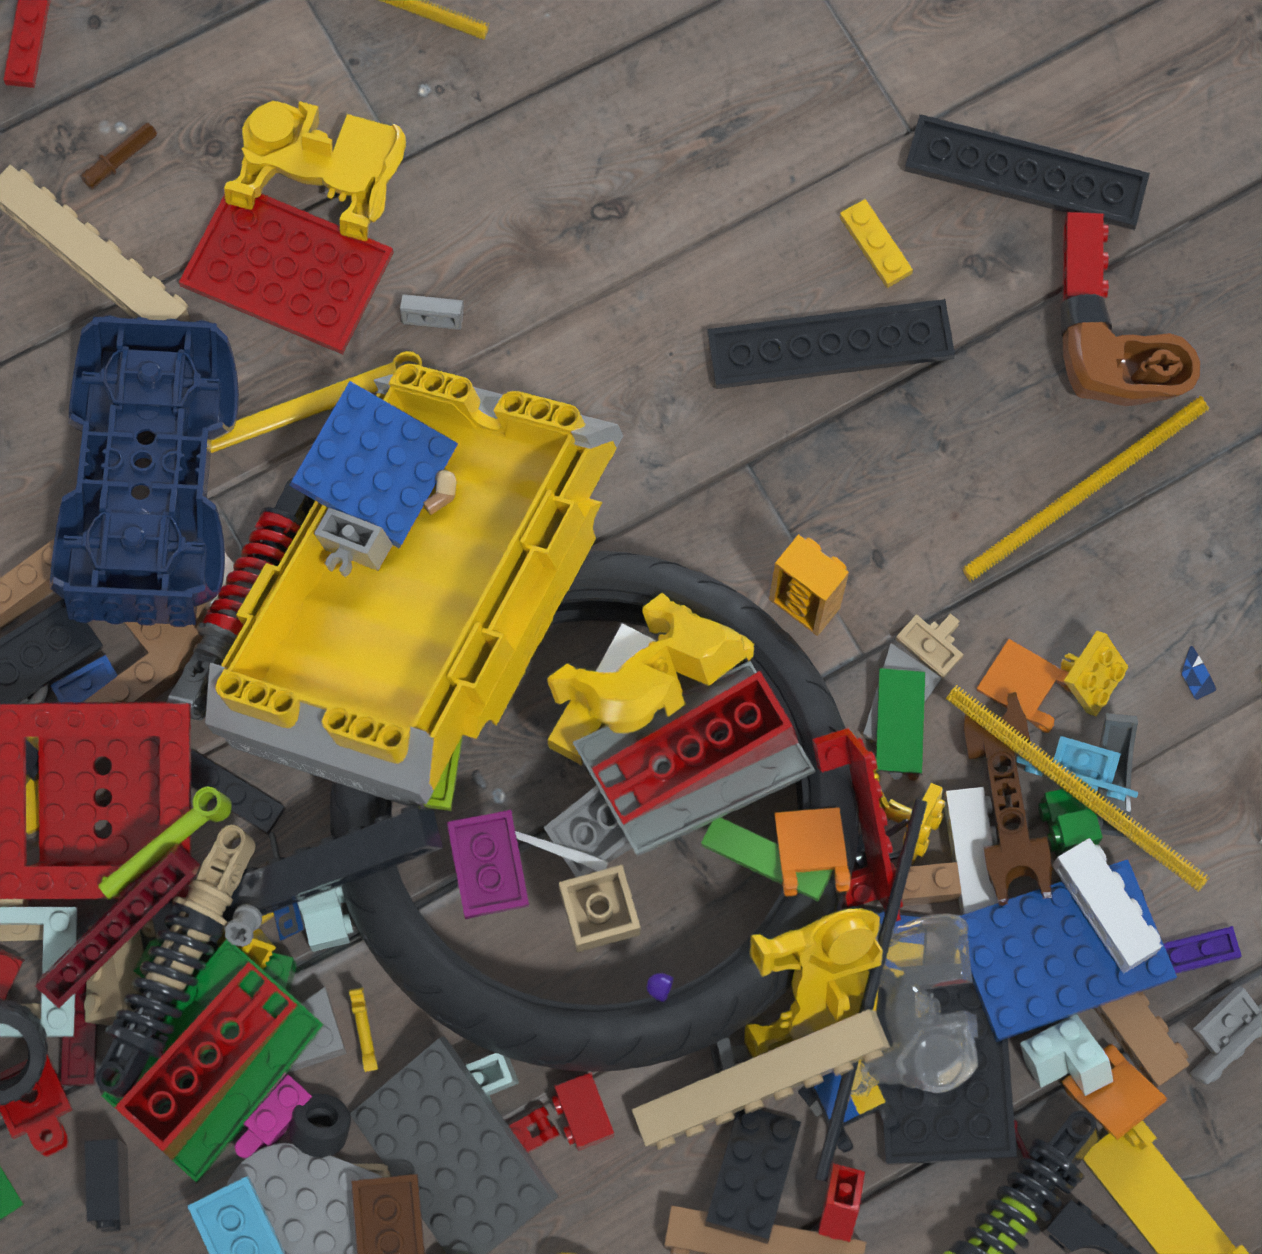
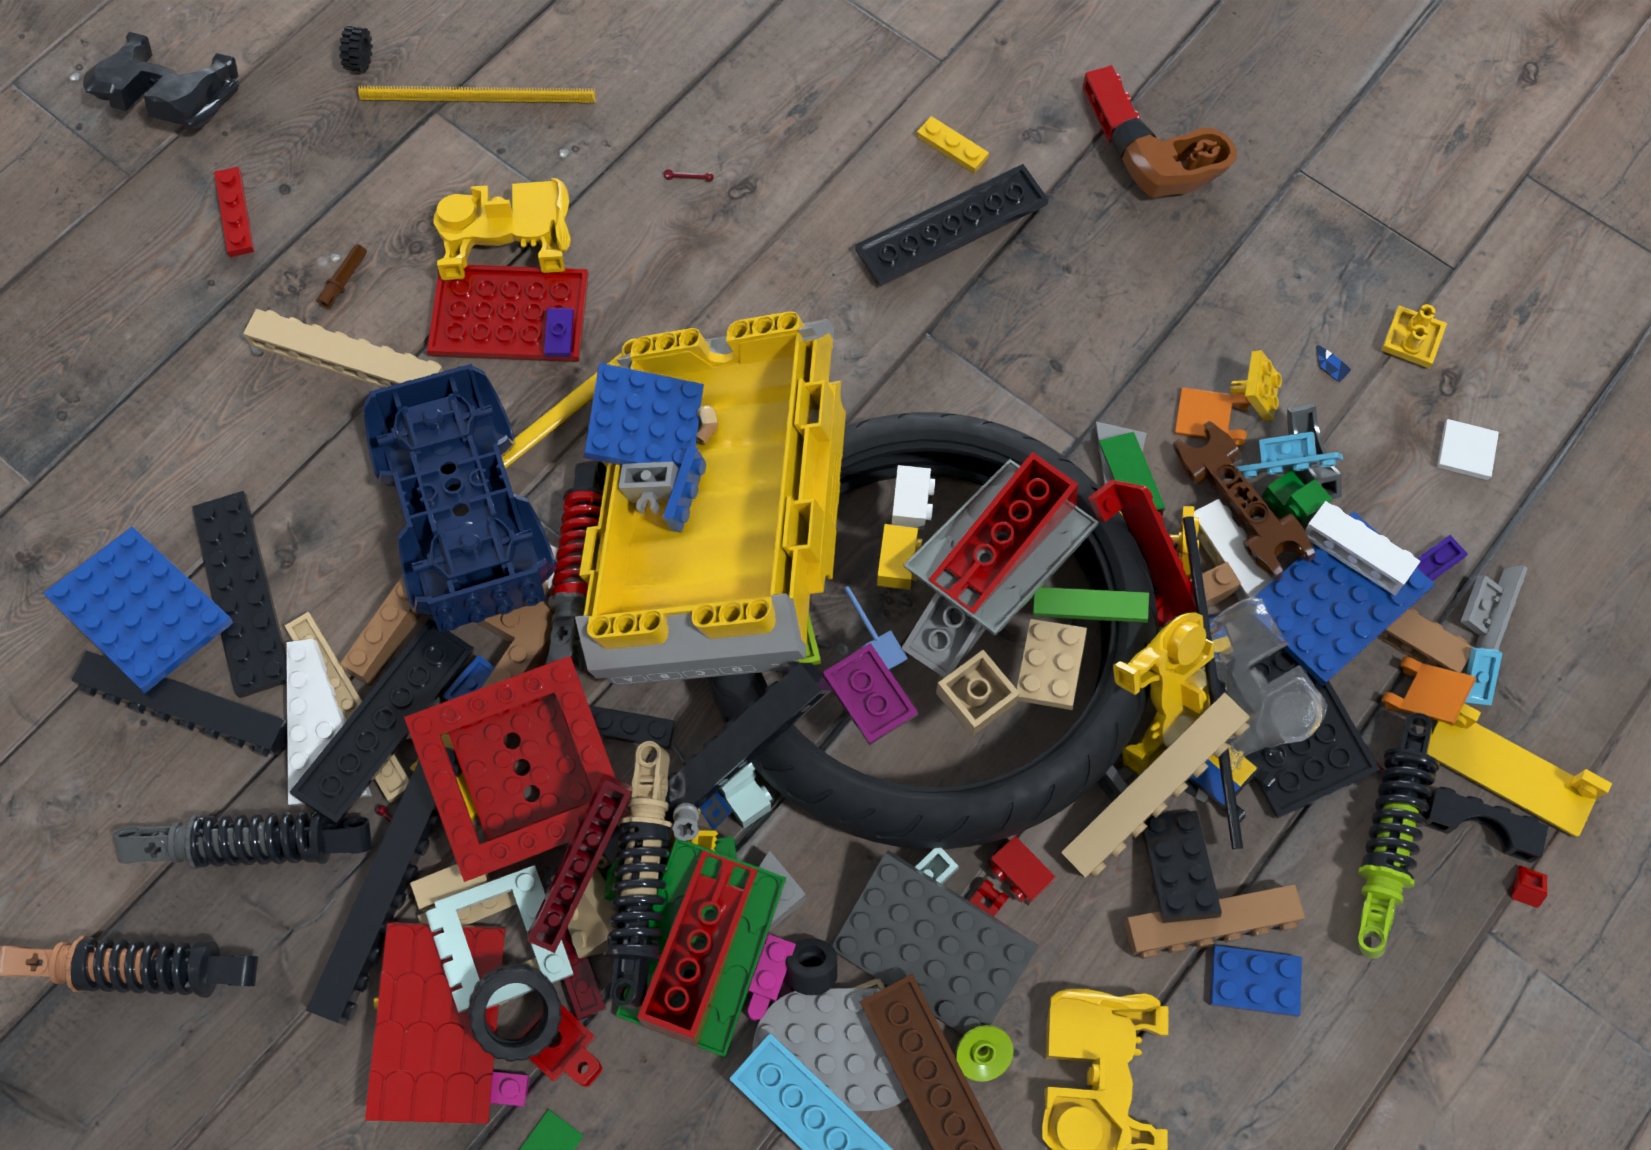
camera: 20 degrees left, 5 degrees down
(107, 1184) = (651, 1088): black brick -> none
(176, 833) = (594, 775): lime piece -> none
(331, 315) = (559, 332): none -> dark purple plate
(364, 1033) = (804, 858): yellow bar -> none
(385, 561) = (684, 489): none -> blue plate
(432, 312) = (637, 305): light grey brick -> none
(526, 818) = (886, 644): none -> medium blue piece
(532, 162) = (668, 175): none -> dark red hinge
(580, 857) = (956, 659): white sticker -> none
(649, 678) = (947, 487): yellow animal -> none
(659, 986) = (1053, 737): dark purple hinge -> none
(694, 906) = (1051, 664): none -> tan plate
(808, 584) = (1022, 392): light orange brick -> none
(811, 843) = (1123, 578): orange flag -> none
(841, 1203) = (1263, 861): red brick -> none
(932, 643) = (1127, 410): tan hinge -> none
(1026, 171) = (1038, 58): black plate -> none
(1067, 1050) = (1378, 672): light aqua brick -> none
(1077, 789) = (1298, 469): yellow axle -> none
(1086, 487) = (1186, 262): yellow axle -> none
(1184, 1098) = (1485, 667): none -> medium azure plate

